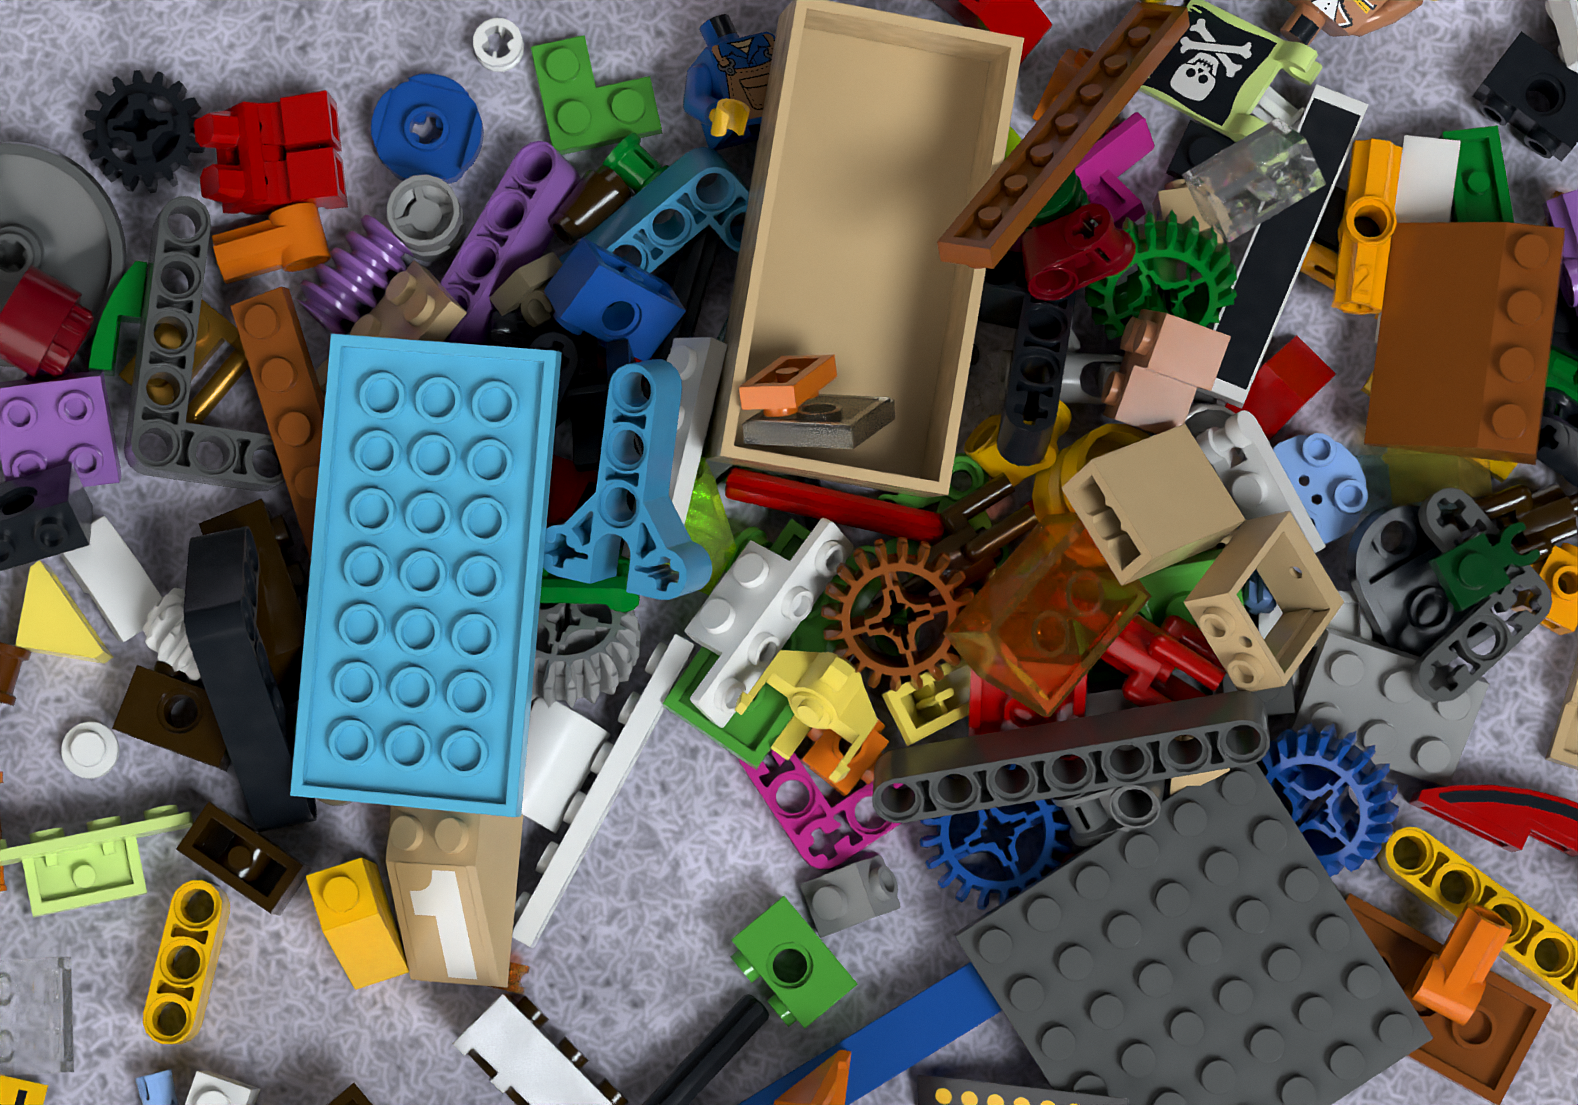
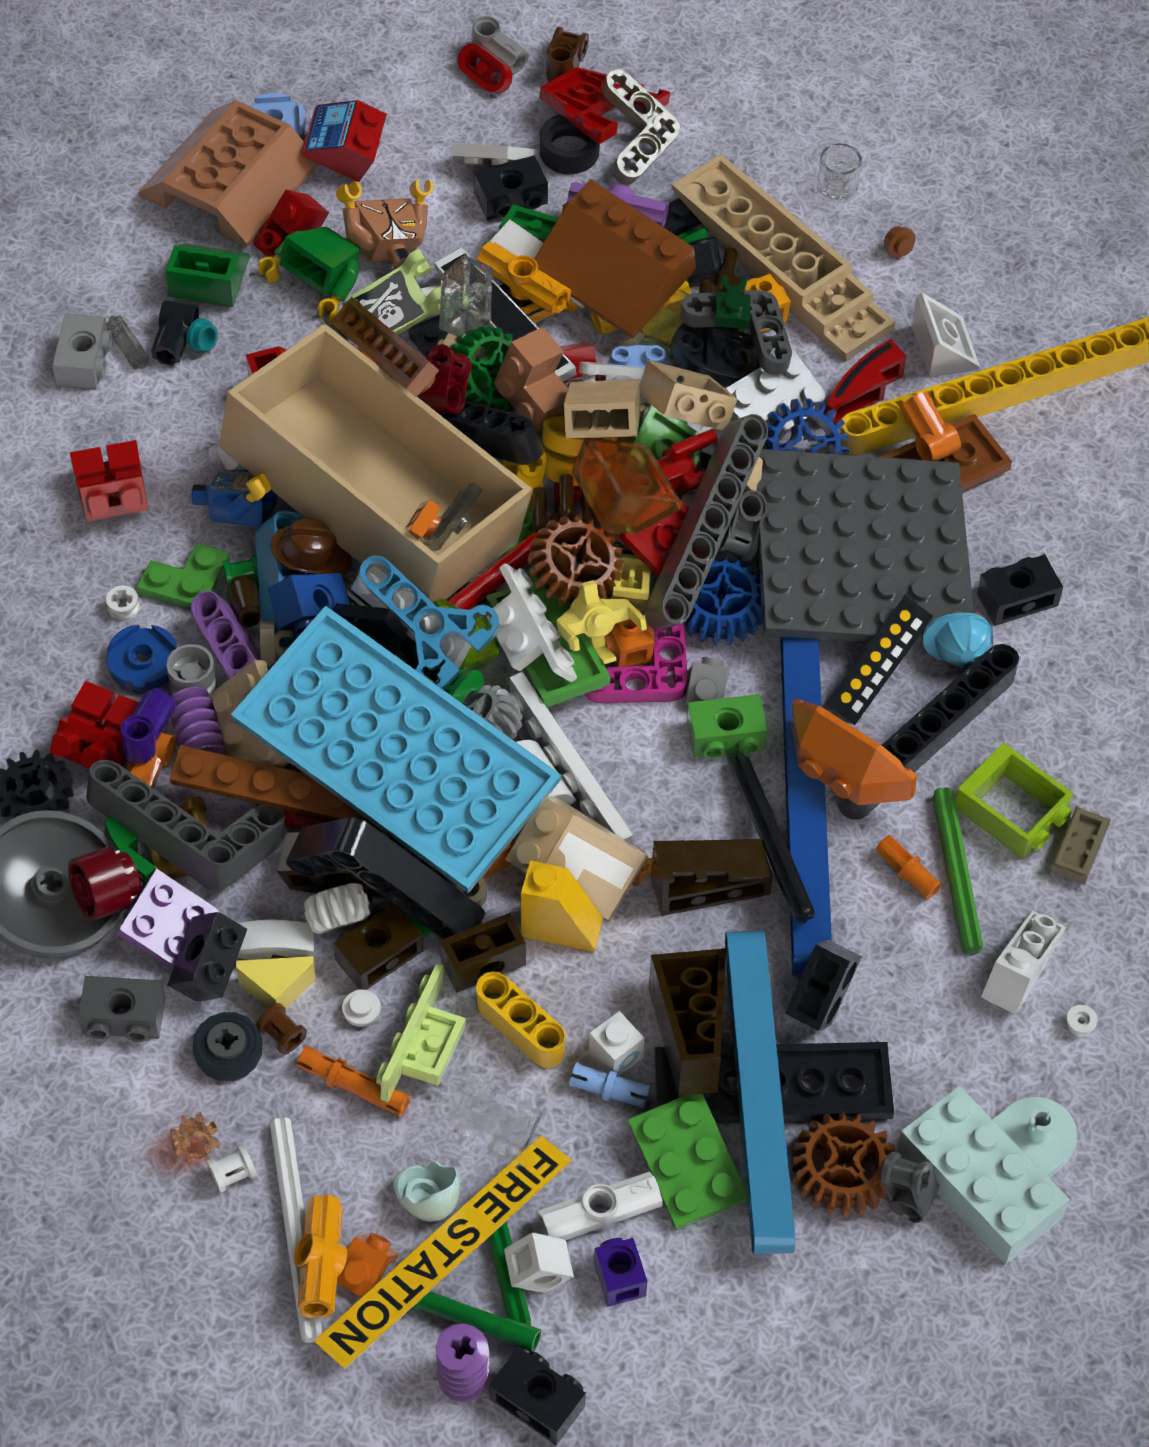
camera: 60 degrees left, 25 degrees down
(304, 218) = (145, 726): none -> dark purple piece
(691, 247) = (310, 548): none -> reddish brown piece

